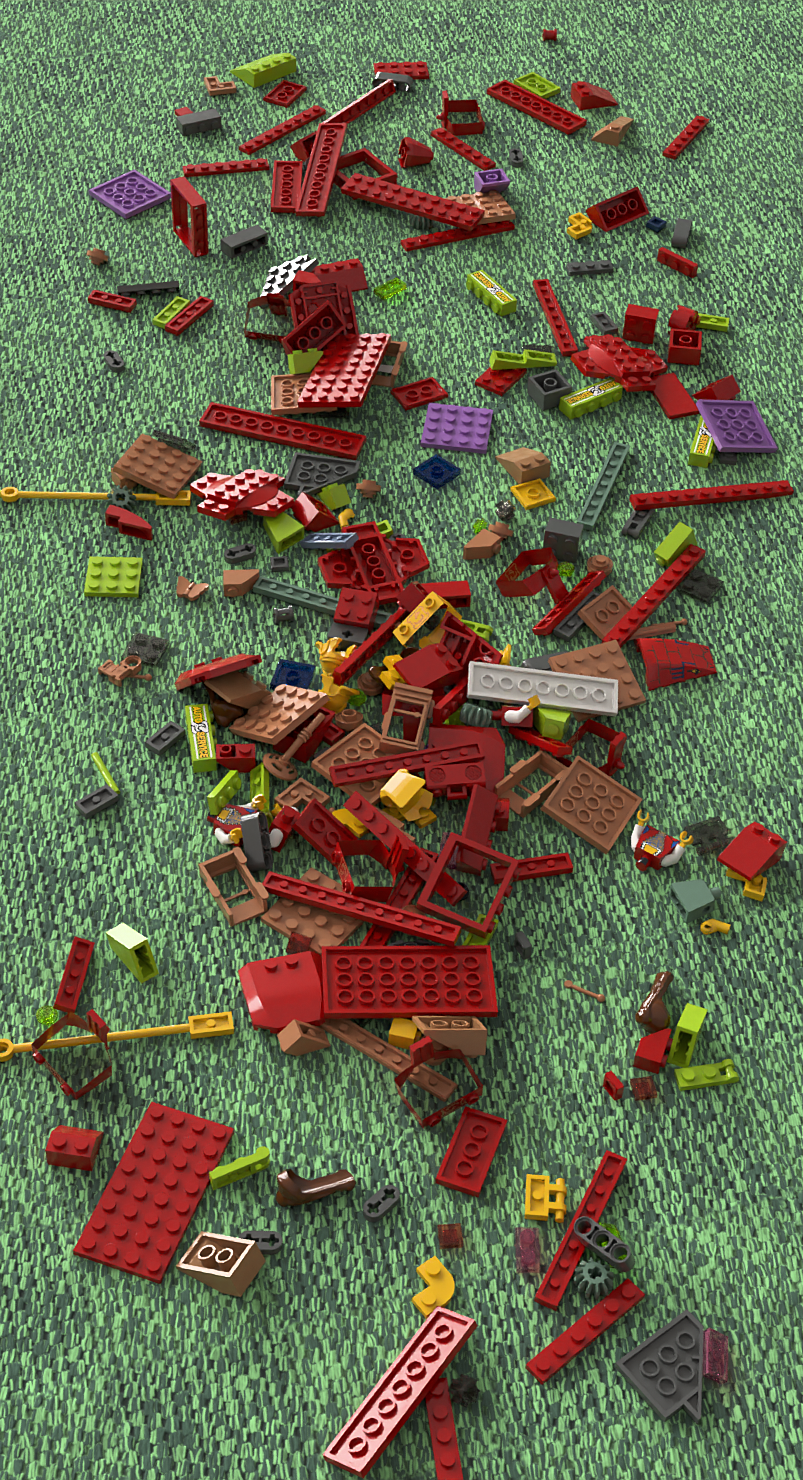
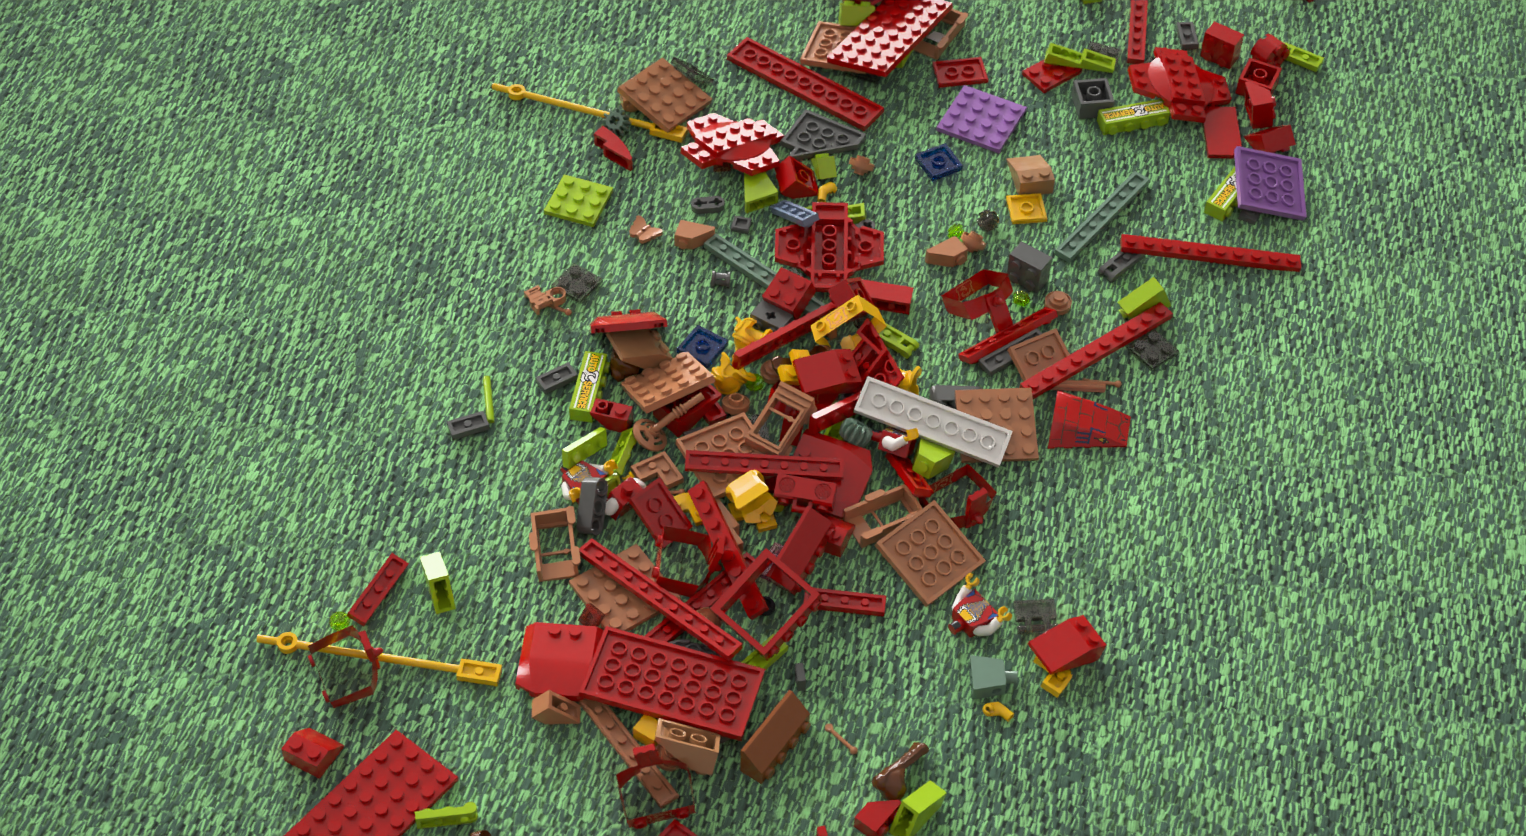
camera: 20 degrees right, 5 degrees up
(527, 1006) = (774, 738): none -> dark orange slope
(696, 365) = (1259, 106): none -> red slope

